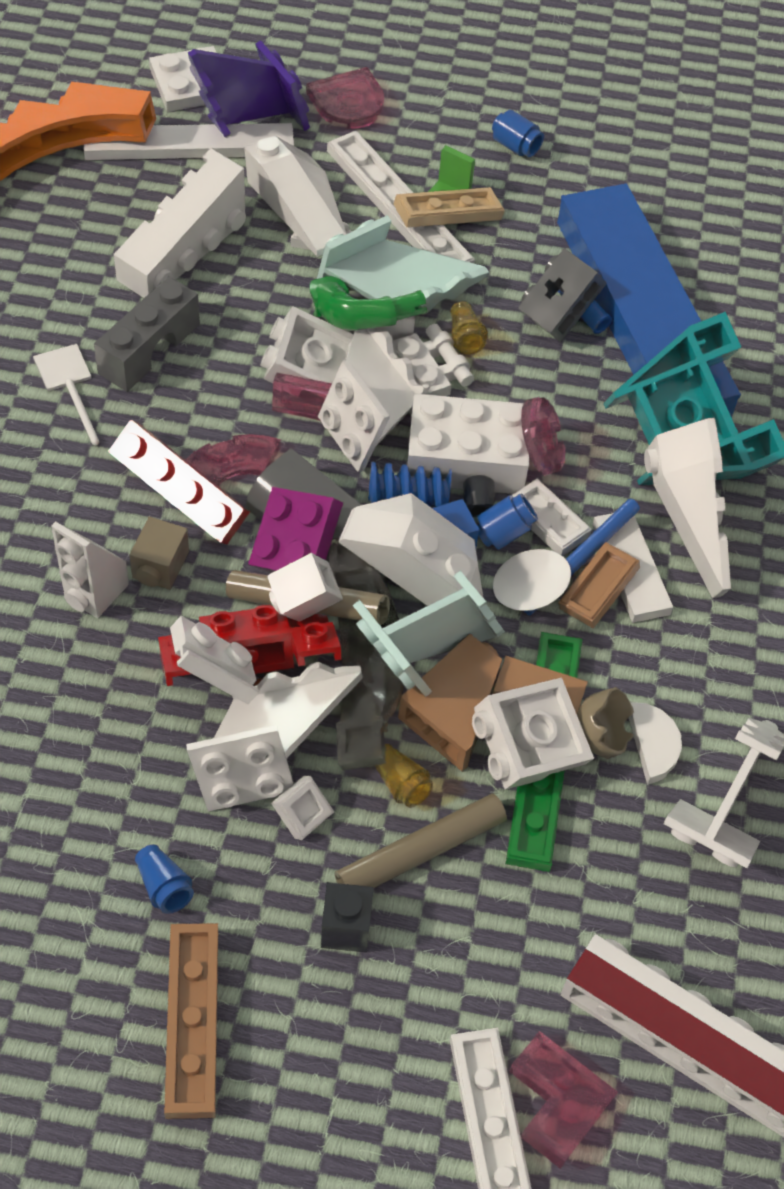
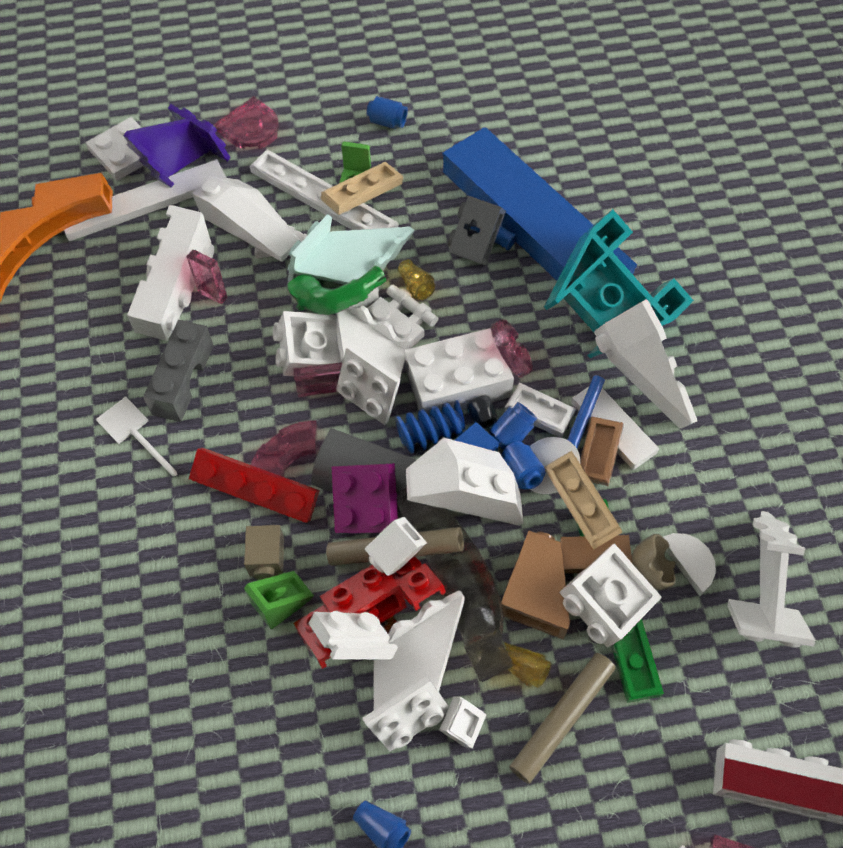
camera: 15 degrees left, 5 degrees up
(88, 571) = (217, 591): white slope -> none
(151, 604) = (278, 597): none -> bright green slope
(222, 242) = (207, 276): none -> clear pink tile
(346, 917) = (536, 802): black brick -> none
(430, 631) = (510, 540): light aqua piece -> none
(499, 567) = (524, 464): none -> blue brick
(549, 624) = (583, 500): none -> tan tile

